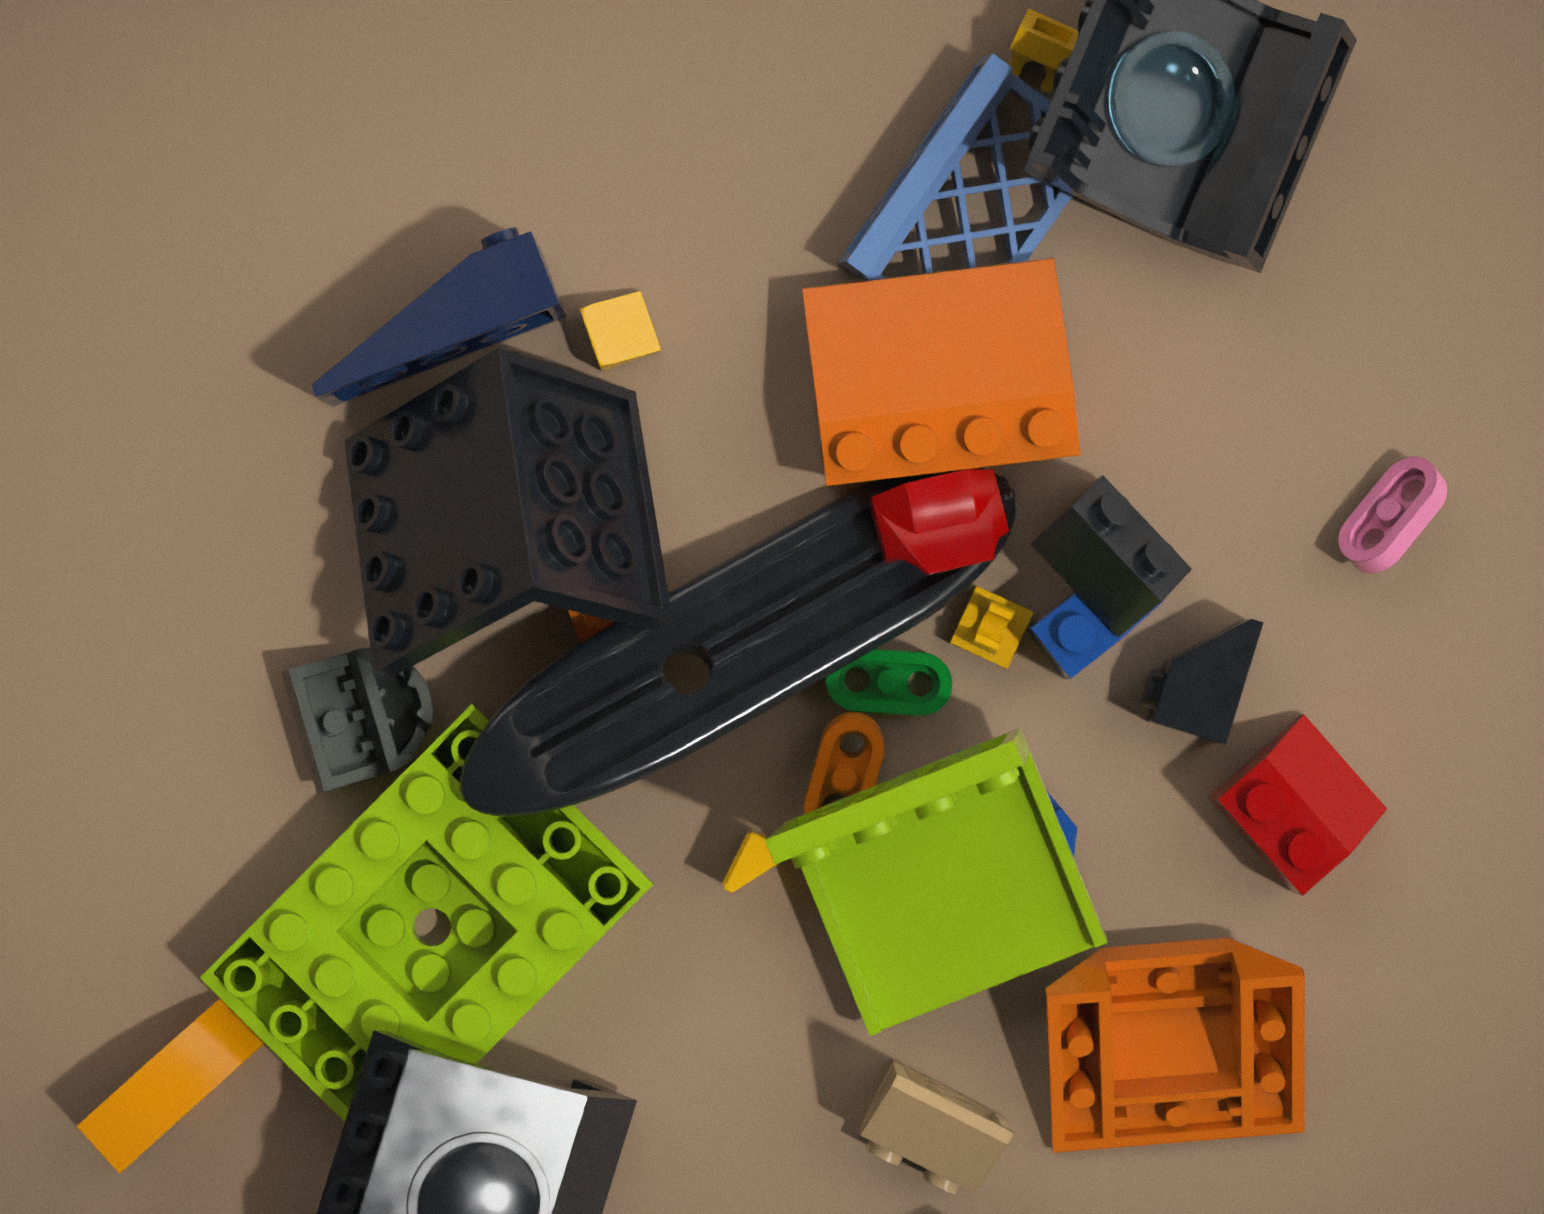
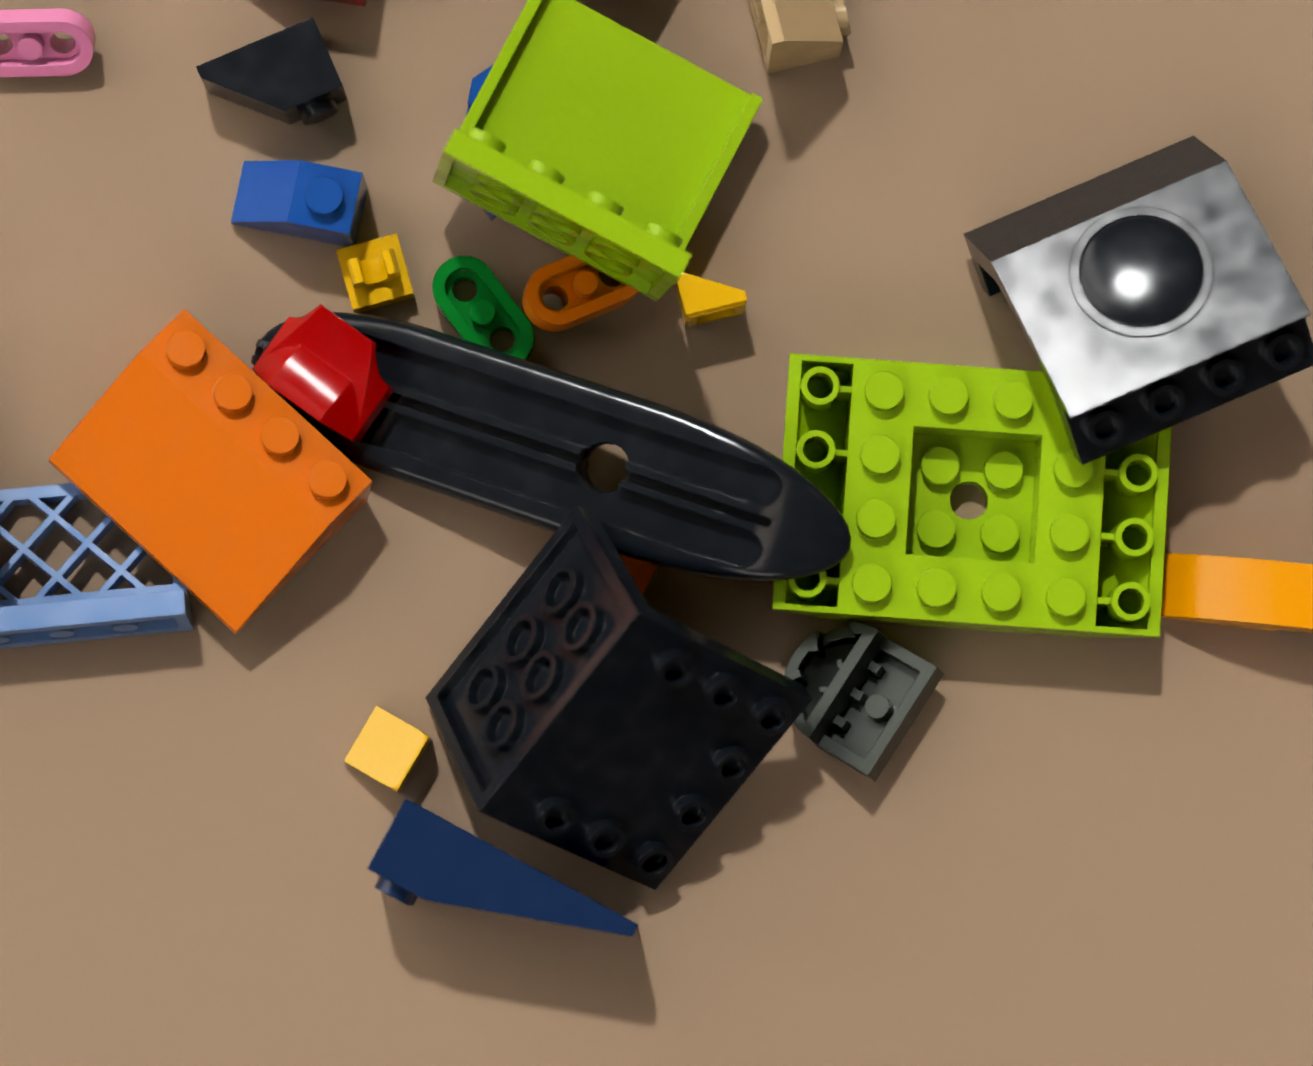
camera: 135 degrees left, 5 degrees down
(1111, 556) = (241, 220): black slope -> none

